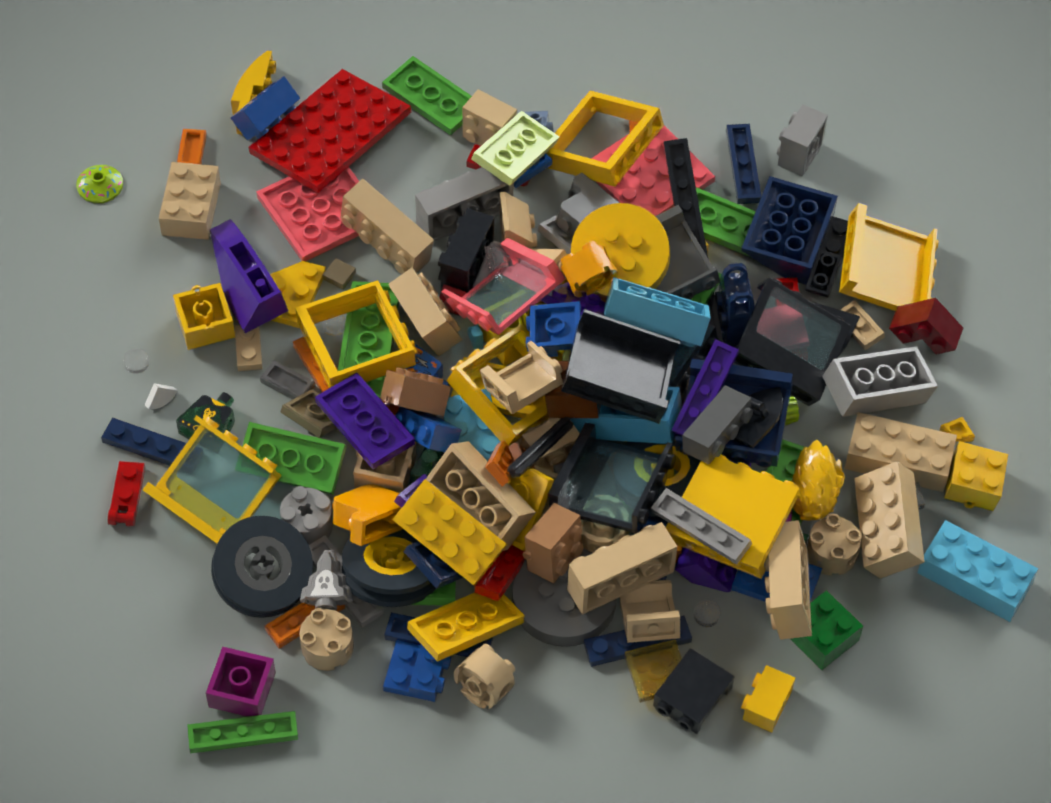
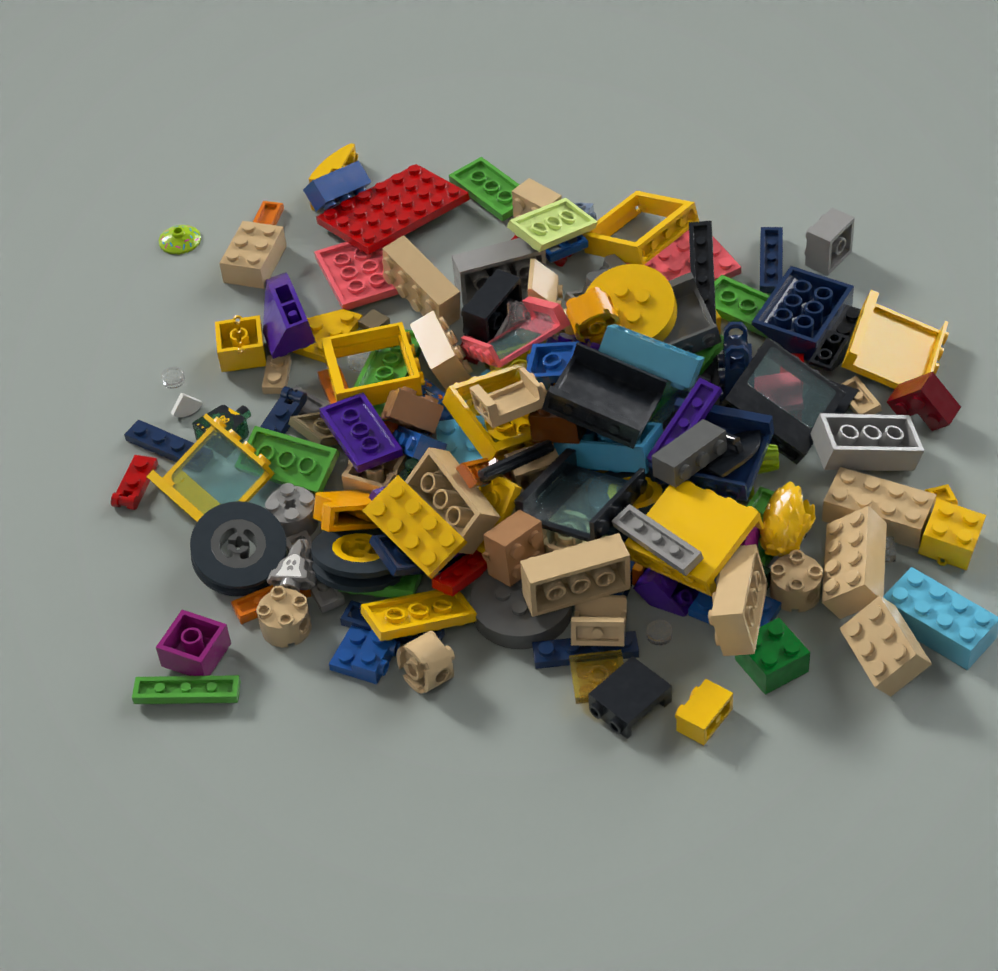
camera: 15 degrees right, 10 degrees down
(268, 398) = (280, 414): none -> dark blue plate
(933, 610) = (885, 646): none -> tan brick

